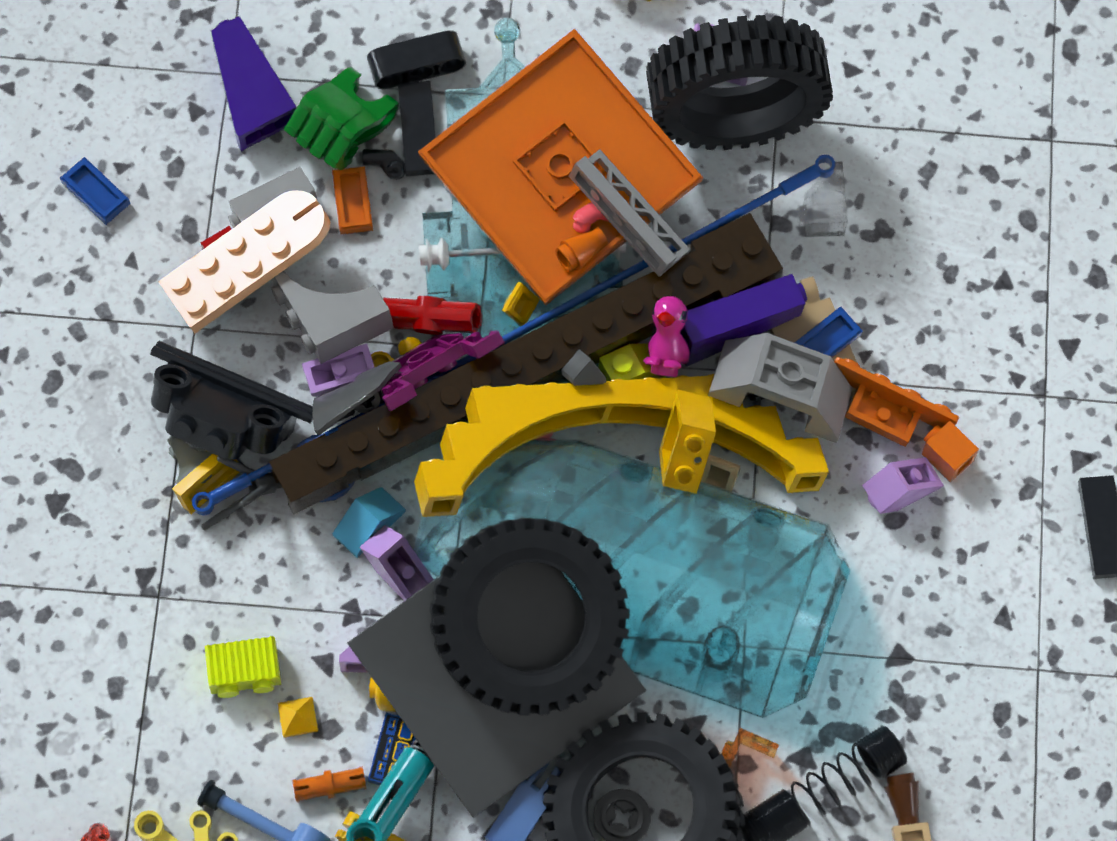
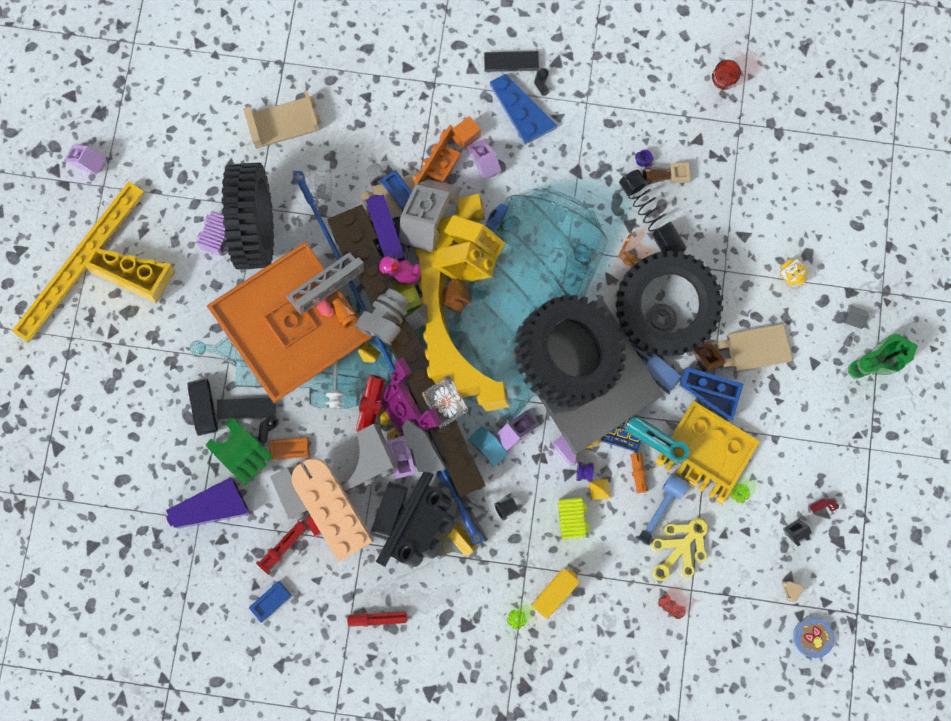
camera: 85 degrees left, 10 degrees up
(66, 357) = (368, 619): none -> red axle
(66, 590) = (516, 624): none -> clear neon green plate
(108, 635) = (555, 592): none -> yellow window
(173, 190) = (275, 554): none -> red pin
(252, 360) = (388, 510): none -> black beam
(258, 553) = (506, 508): none -> black piece
(327, 685) = (585, 471): none -> dark purple wheel
(428, 414) = (445, 401): none -> clear tile
(584, 313) = (382, 321): none -> light grey beam
(630, 438) = (456, 296): none -> dark orange brick
(734, 455) = (469, 231): none -> yellow window
(788, 502) = (496, 216): none -> blue tile
(854, 301) = (375, 174): none -> light grey piece
(937, 143) = (282, 121): none -> tan panel
(942, 770) = (644, 154): none -> dark purple plate
(1001, 554) = (522, 111): none -> blue wing
(1069, 580) = (540, 80): none -> black arm

